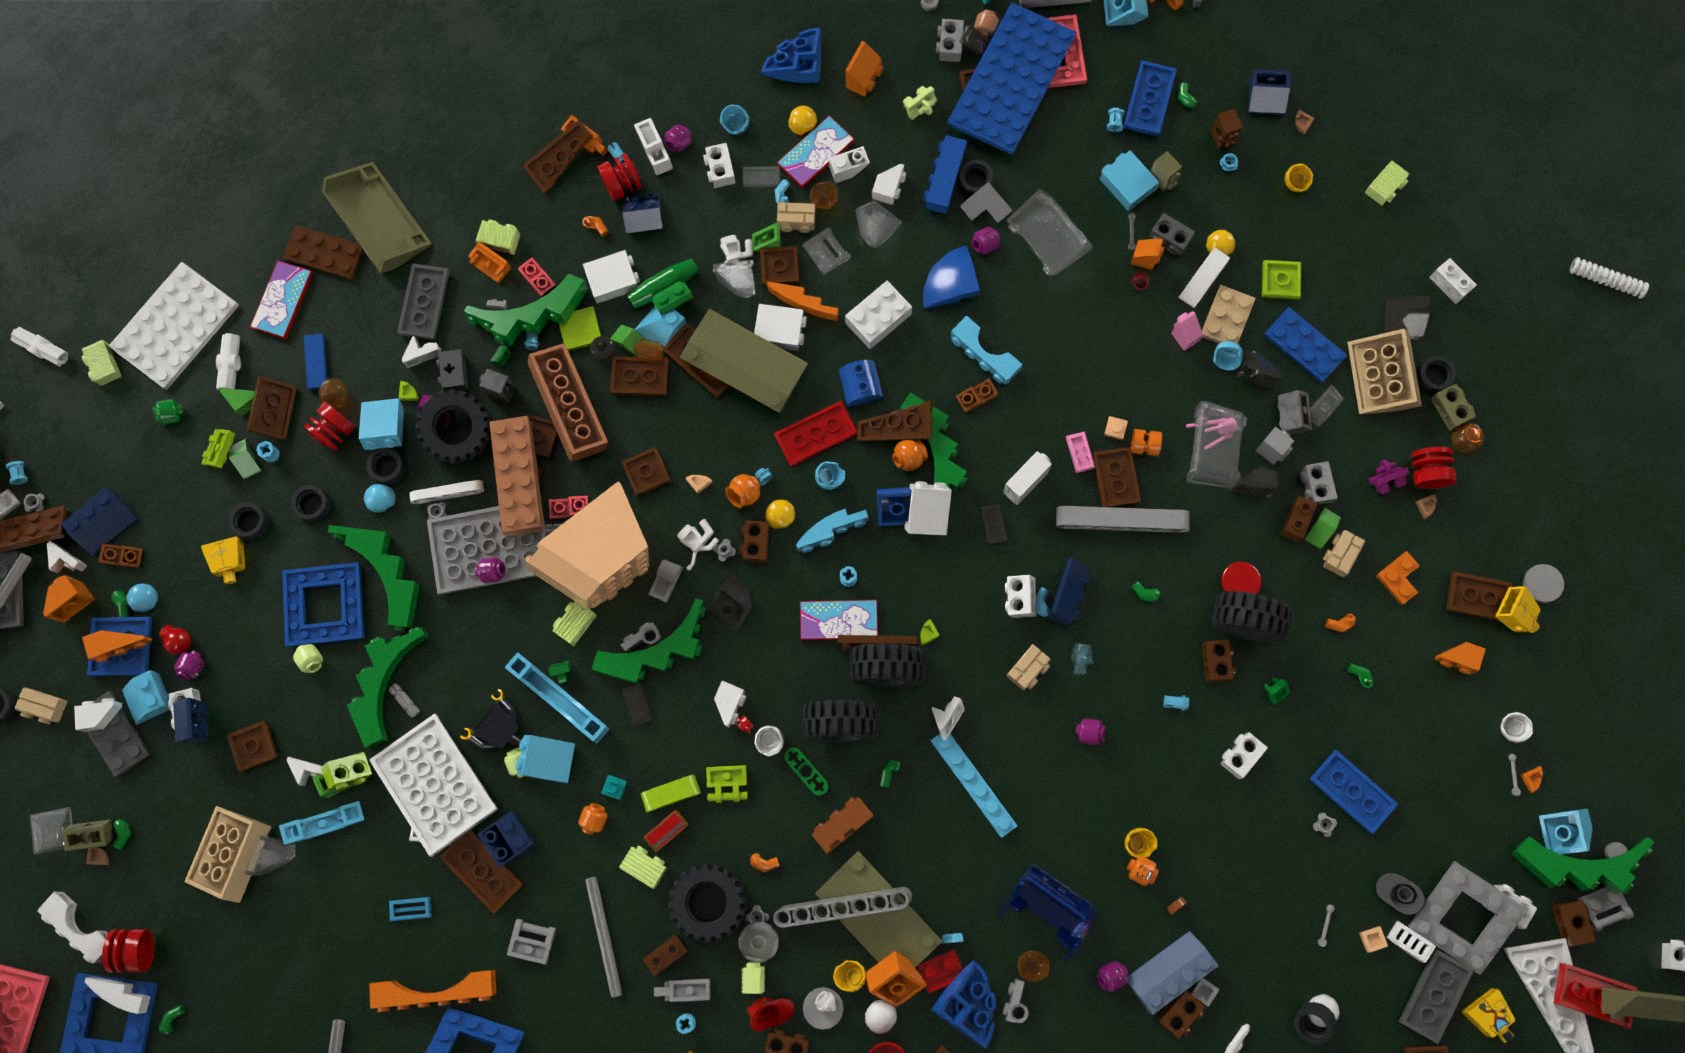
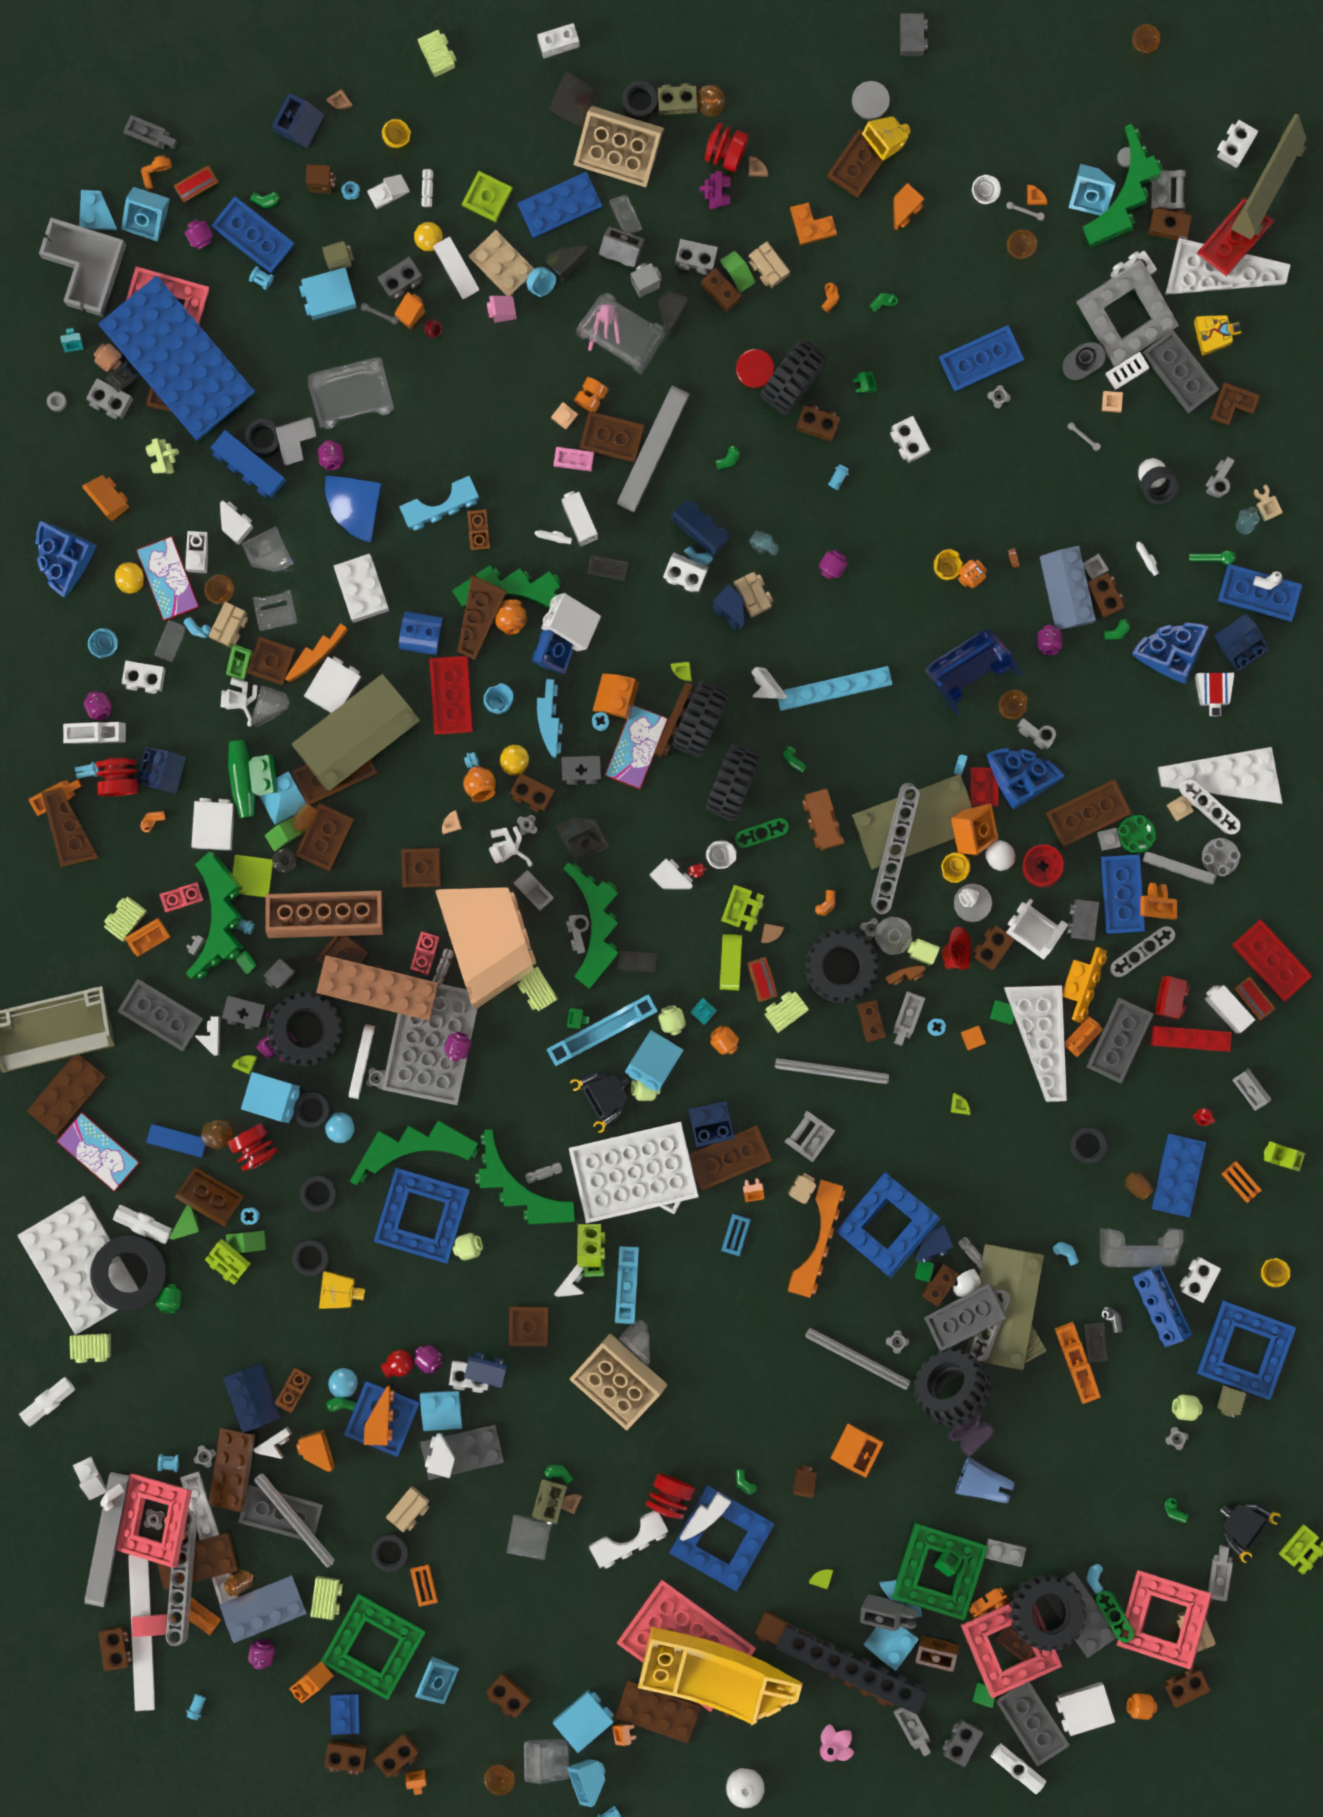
camera: 70 degrees left, 10 degrees up
(168, 339) = (127, 1245): none -> black tyre
(456, 908) = (753, 1192): none -> orange tile
(475, 955) = (803, 1187): none -> tan brick
(593, 760) = (672, 1020): none -> yellowish green head
(714, 820) = (771, 933): none -> medium nougat tile
(729, 975) = (911, 972): none -> dark orange slope
(795, 566) = (571, 764): none -> dark grey brick
(878, 581) = (616, 695): none -> orange slope
(1001, 465) = (554, 536): none -> white piece
(1009, 650) = (730, 605): none -> dark blue slope
(1129, 53) = (198, 234): none -> magenta head
(1151, 1044) = (1119, 632): none -> green arm
(1172, 34) = (196, 183): none -> slope
(1244, 194) = (388, 191): none -> white slope
(1263, 225) = (427, 188): none -> white axle
(1482, 784) = (1021, 244): none -> clear orange hair
(1625, 595) = (912, 34): none -> flat silver brick

